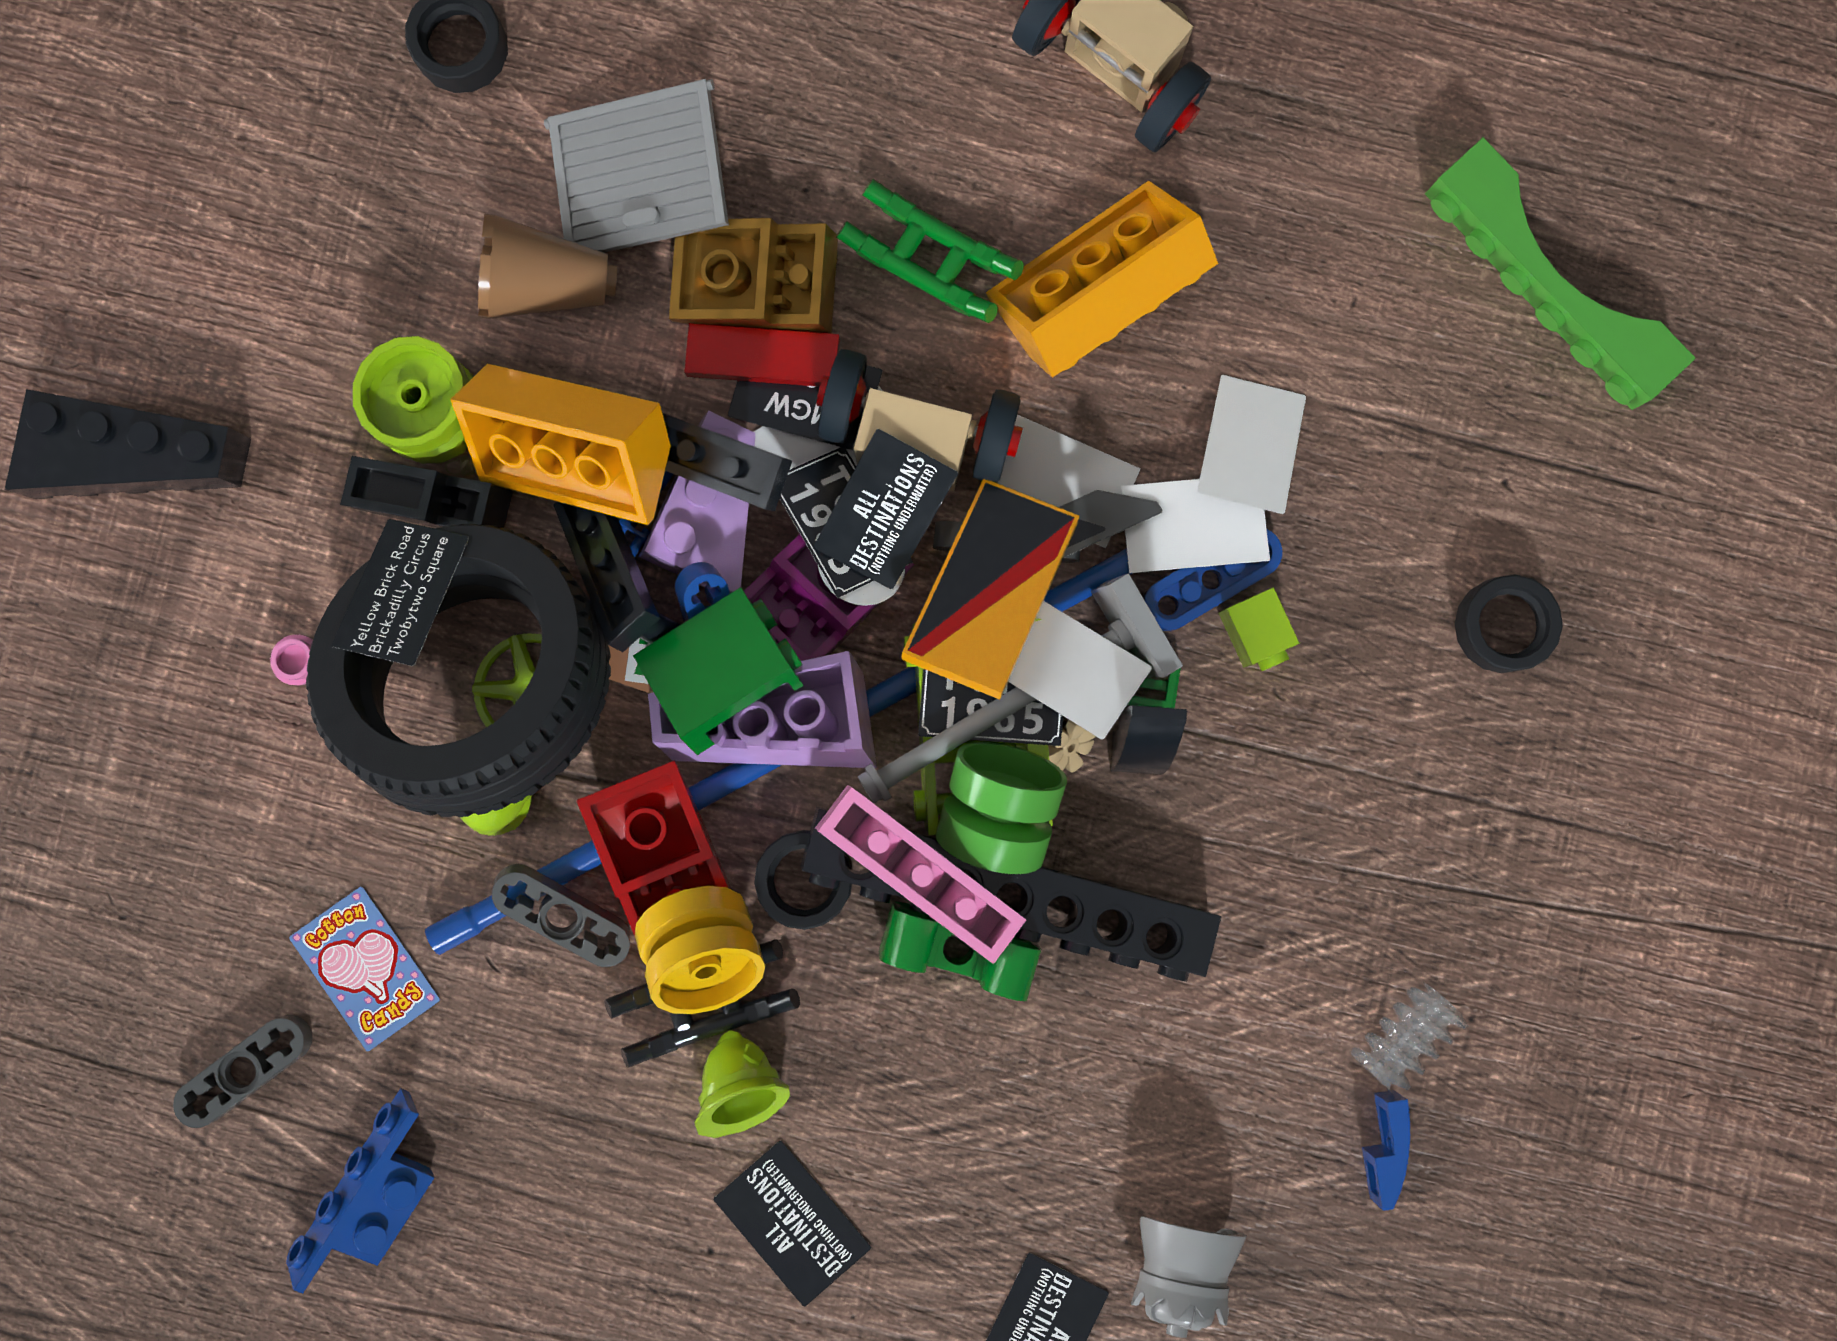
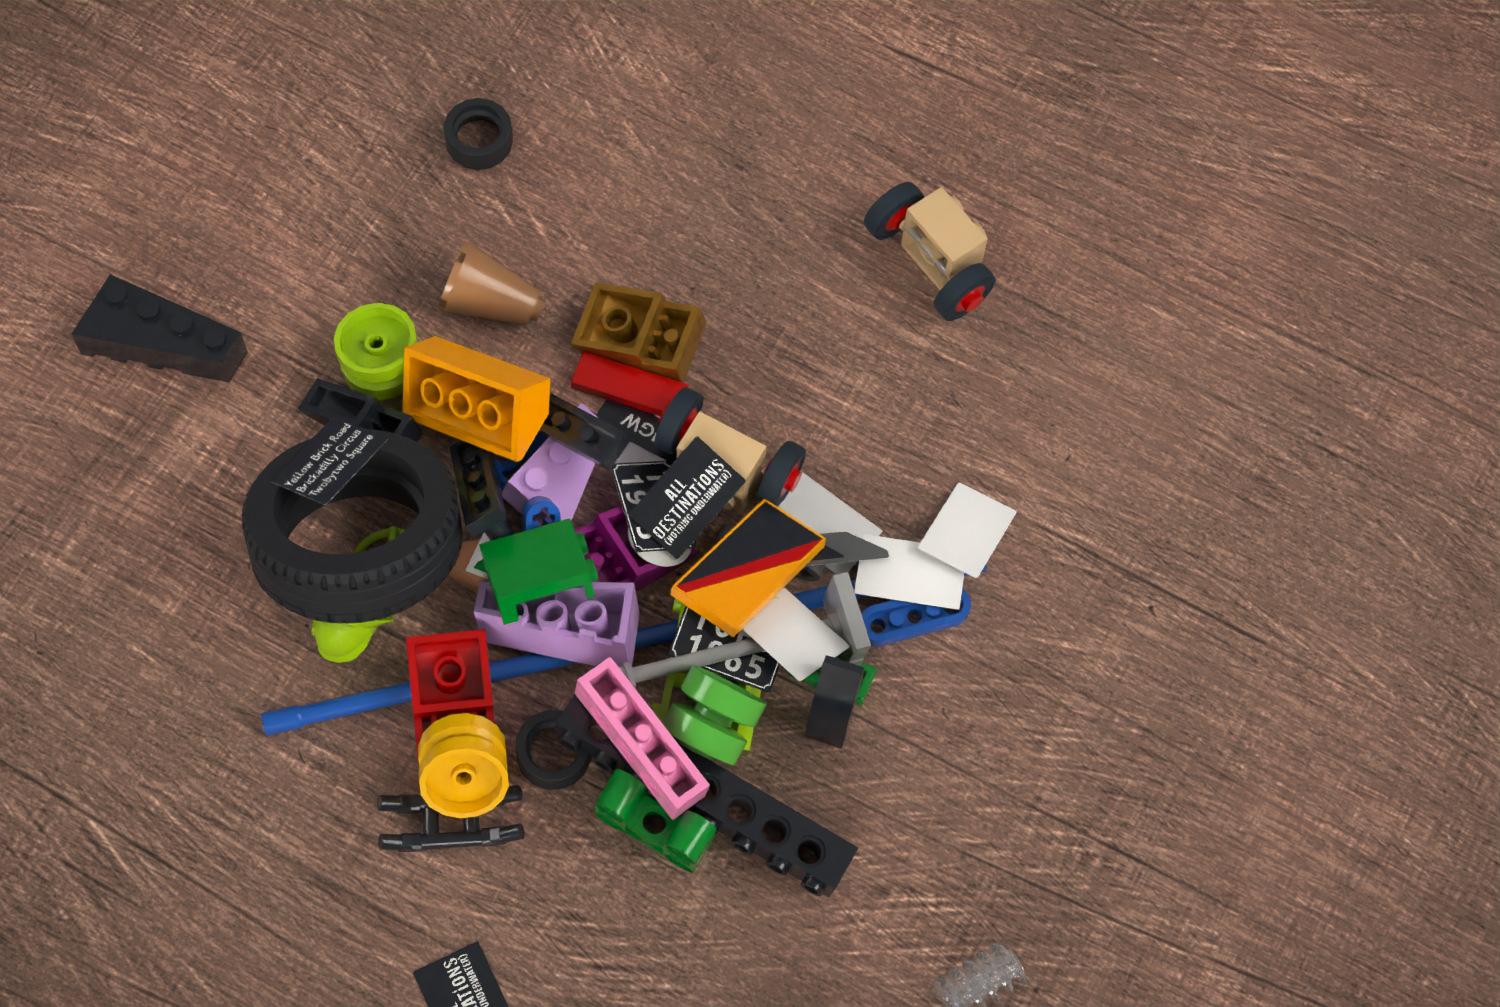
camera: 10 degrees right, 20 degrees down
(221, 1068) = (67, 802): dark grey beam -> none
(290, 659) = (228, 504): bright pink plate -> none
(364, 968) = (205, 734): sticker -> none
(369, 1201) = (155, 899): blue bracket -> none
(521, 909) = (354, 697): dark grey beam -> none
(639, 168) = (579, 243): light grey piece -> none
(738, 1088) = (459, 889): lime piece -> none
(918, 225) = (768, 328): green piece -> none
(1074, 742) = (780, 702): tan plant -> none
(1104, 277) = (888, 394): light orange slope -> none
(1259, 630) = (940, 658): lime brick -> none
(1486, 206) = (1258, 535): bright green arch -> none
(1546, 614) = (1141, 677): black tyre -> none

